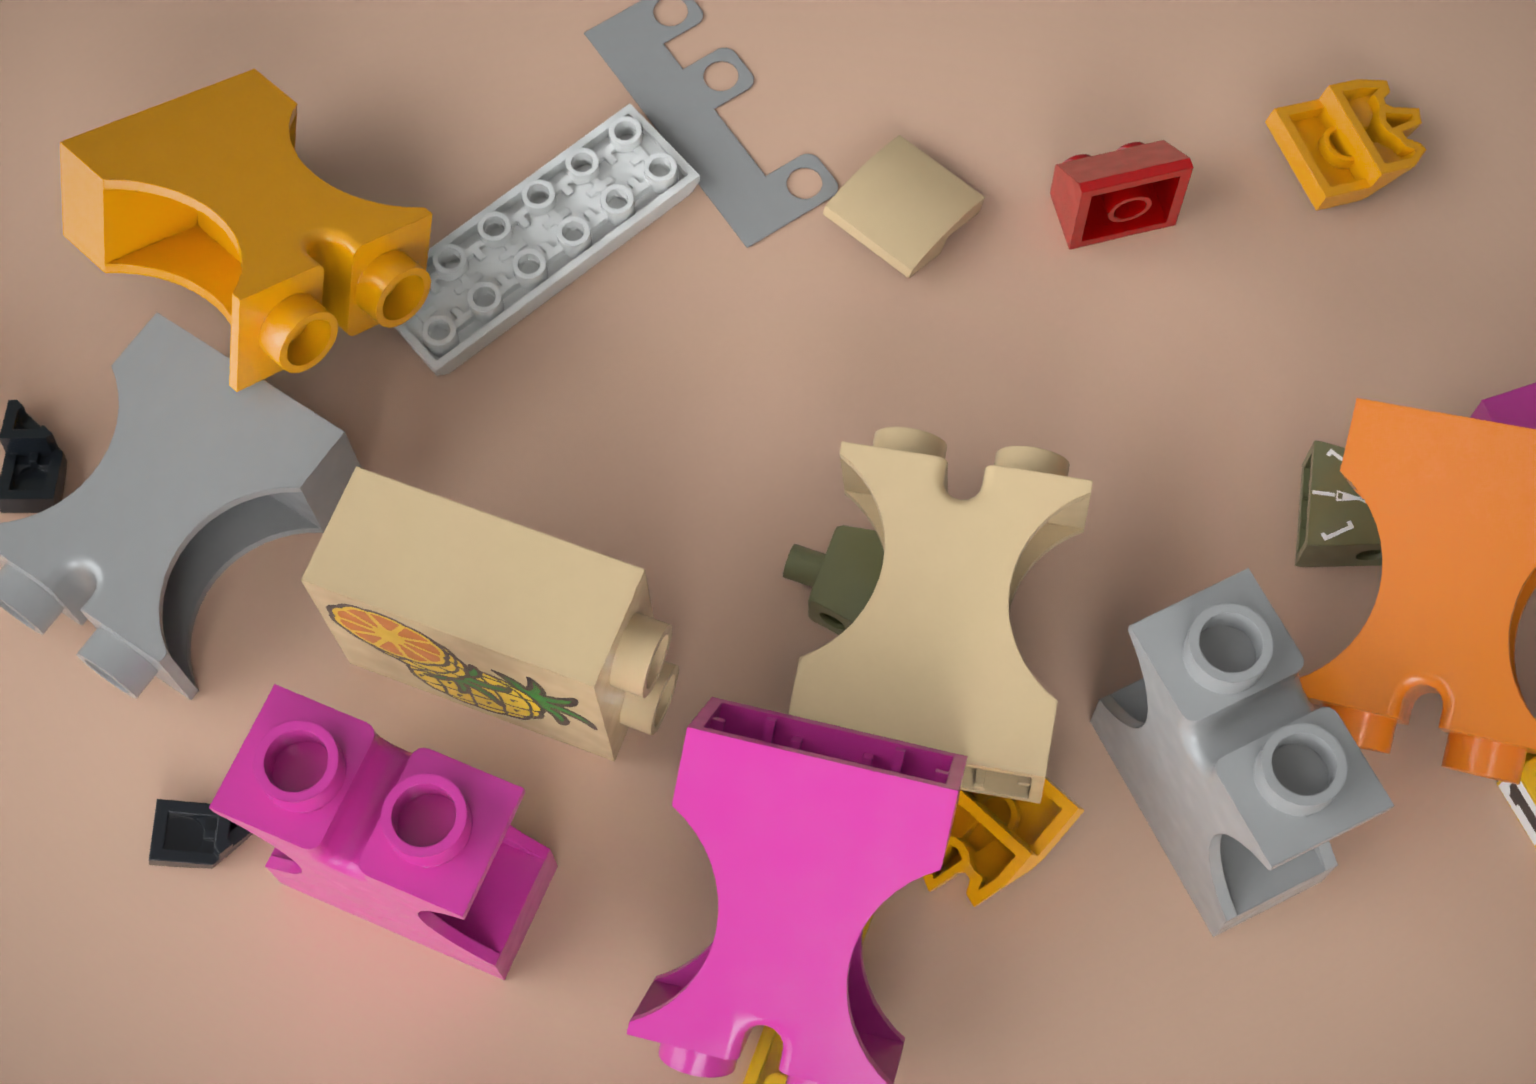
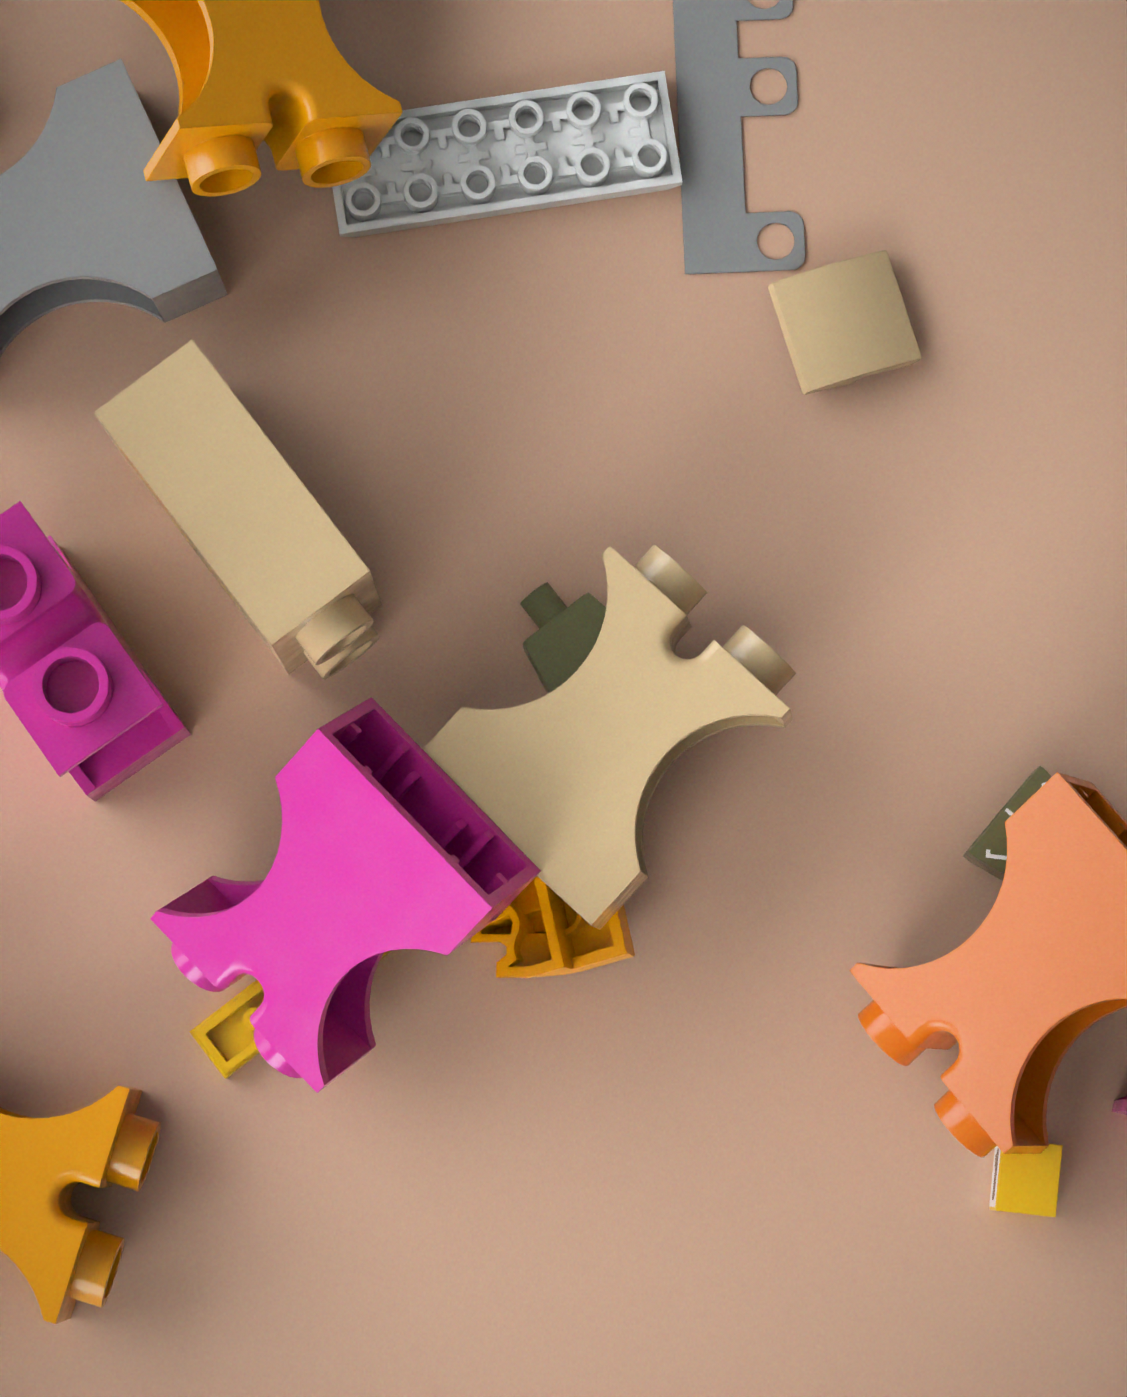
camera: 30 degrees right, 15 degrees up
(1120, 192) = (1039, 426): red slope -> none
(1234, 754) = (756, 995): light grey brick -> none

